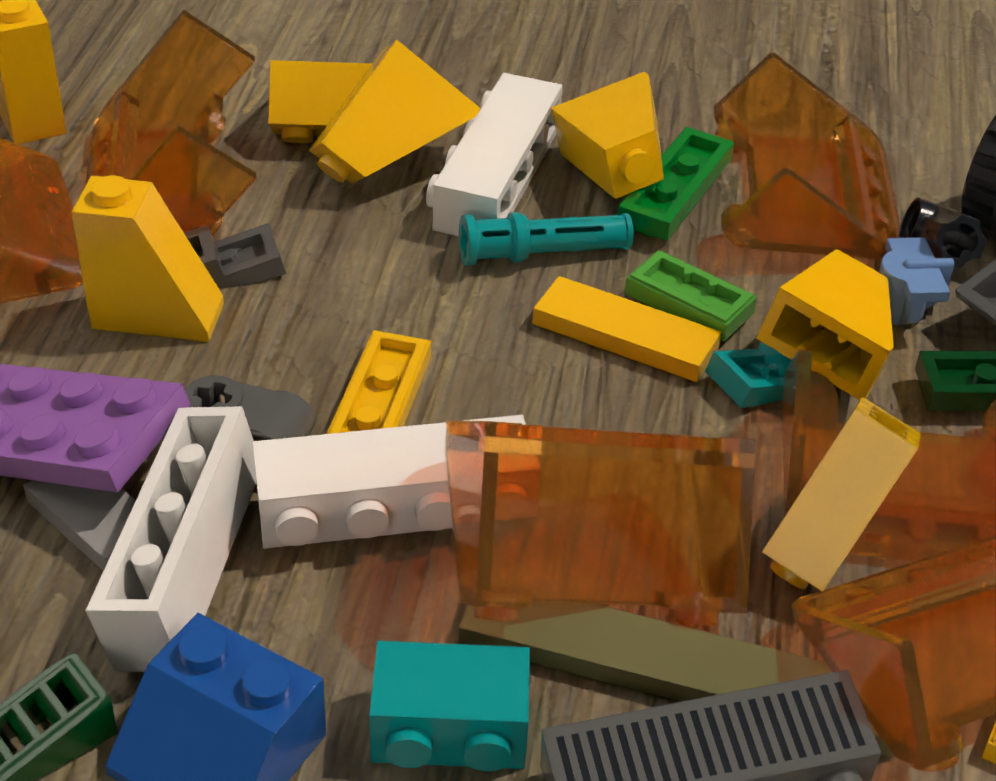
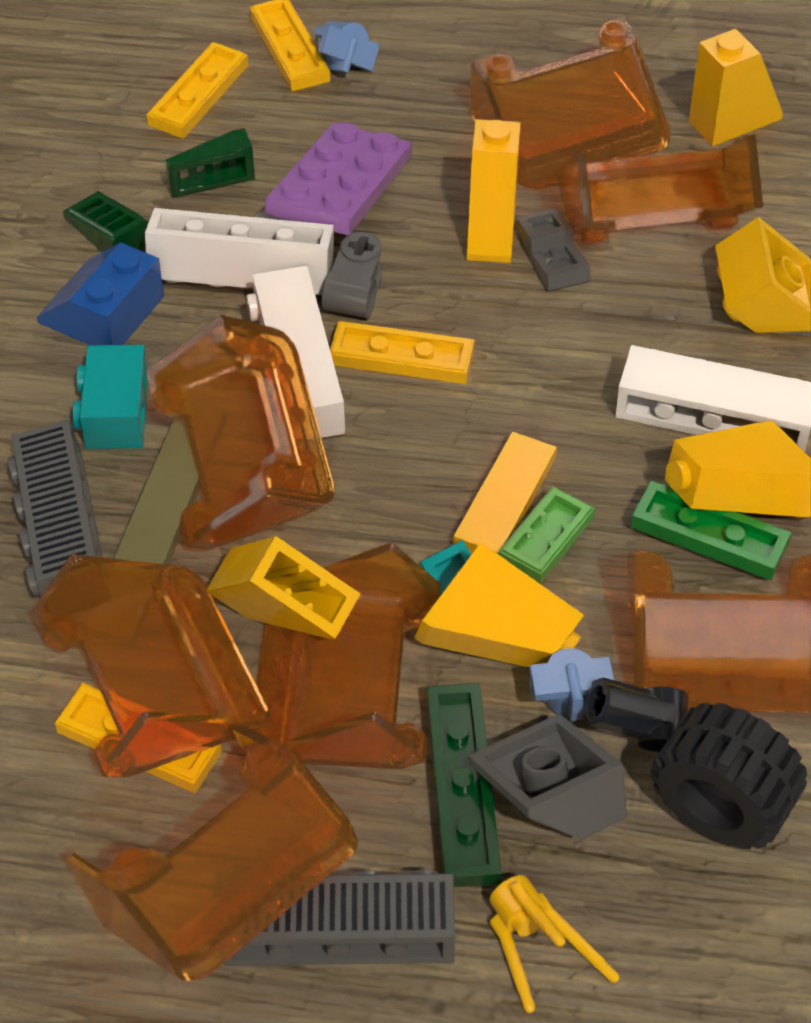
camera: 90 degrees right, 10 degrees up
(389, 115) = (722, 310): yellow slope -> none
(518, 237) = (602, 419): teal pin -> none

